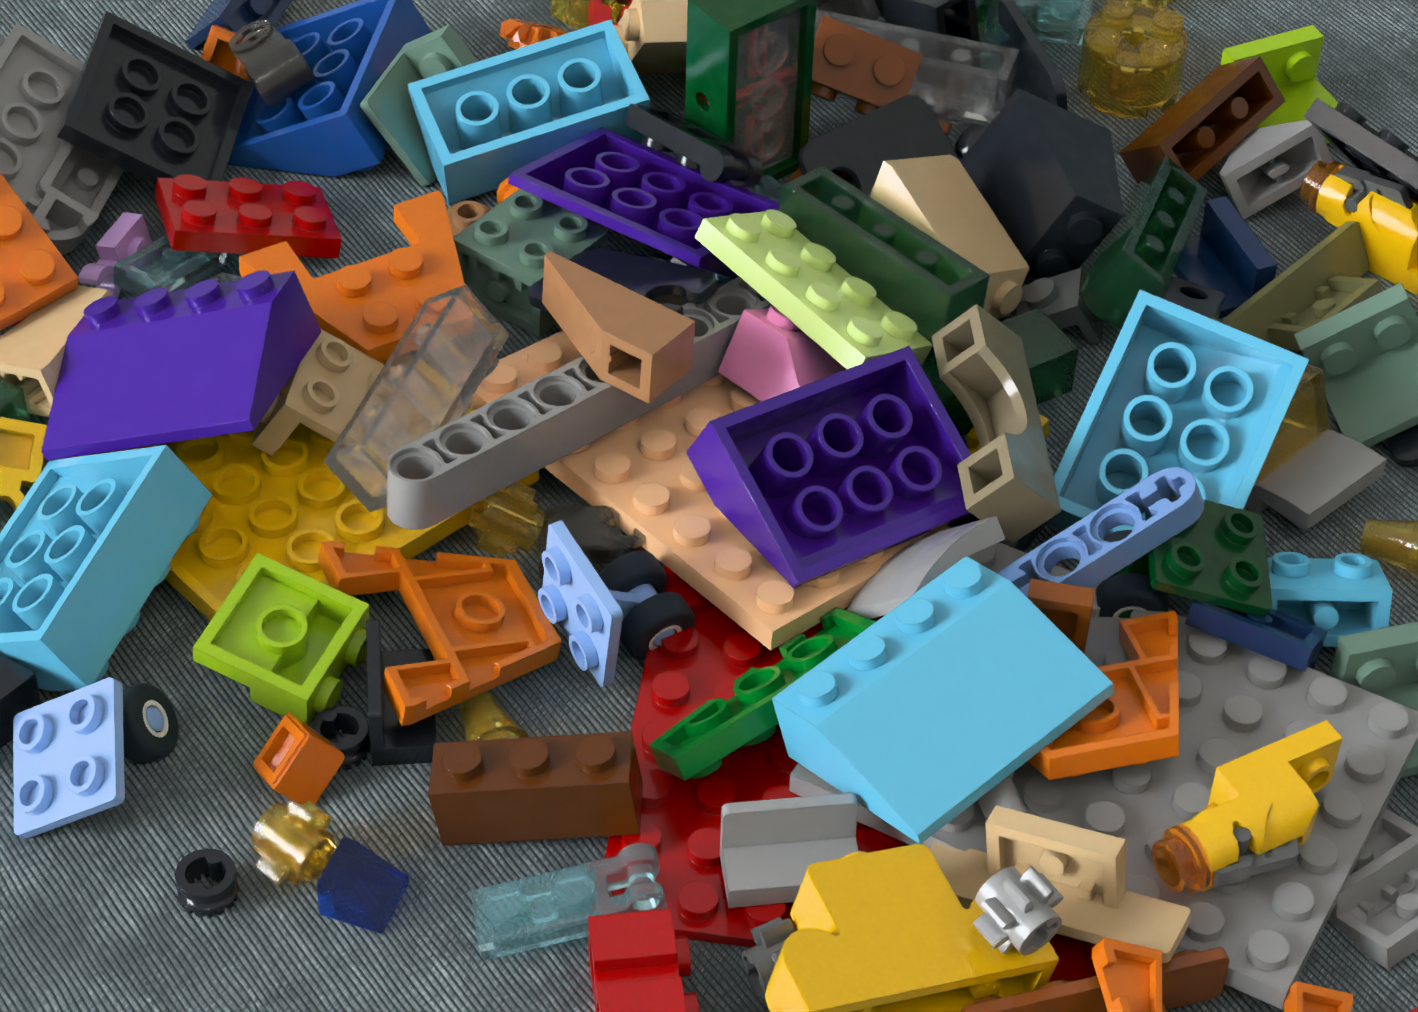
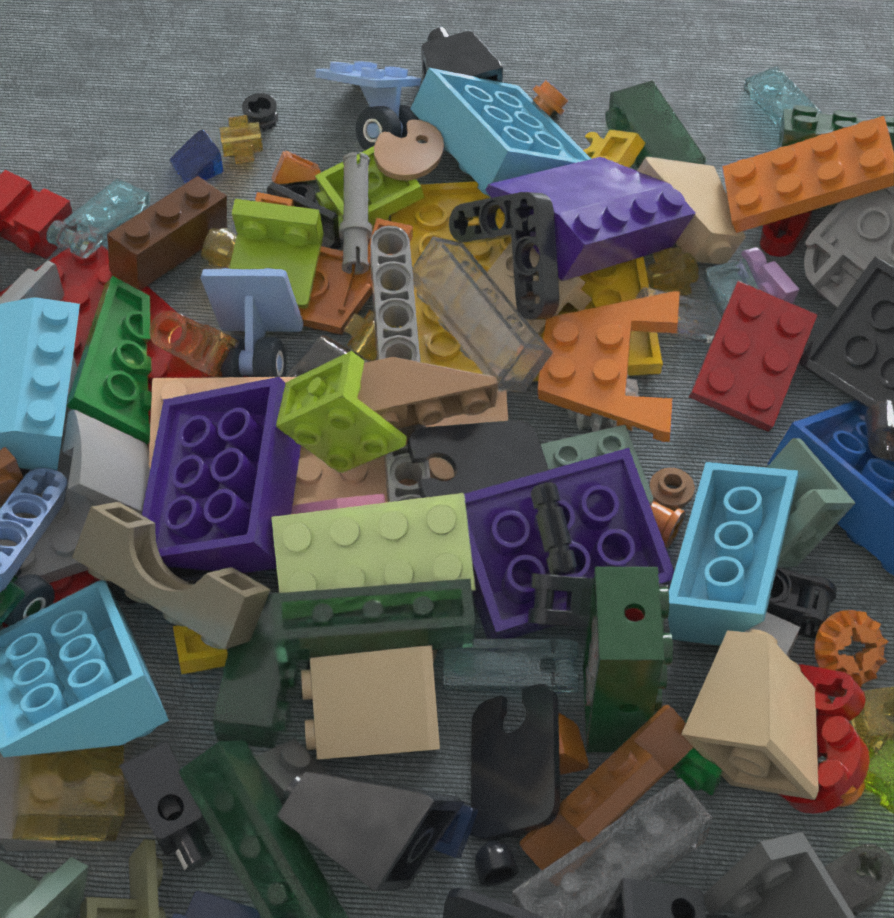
camera: 130 degrees right, 10 degrees up
(210, 604) = (406, 157): none -> medium nougat piece
(300, 358) = (518, 226): none -> black beam
(381, 575) = (355, 228): none -> light grey pin
(492, 629) = (278, 239): none -> lime bracket
(656, 183) = (553, 529): none -> black axle
(685, 637) = (198, 345): none -> clear orange piece
(708, 357) = (329, 420): none -> lime bracket

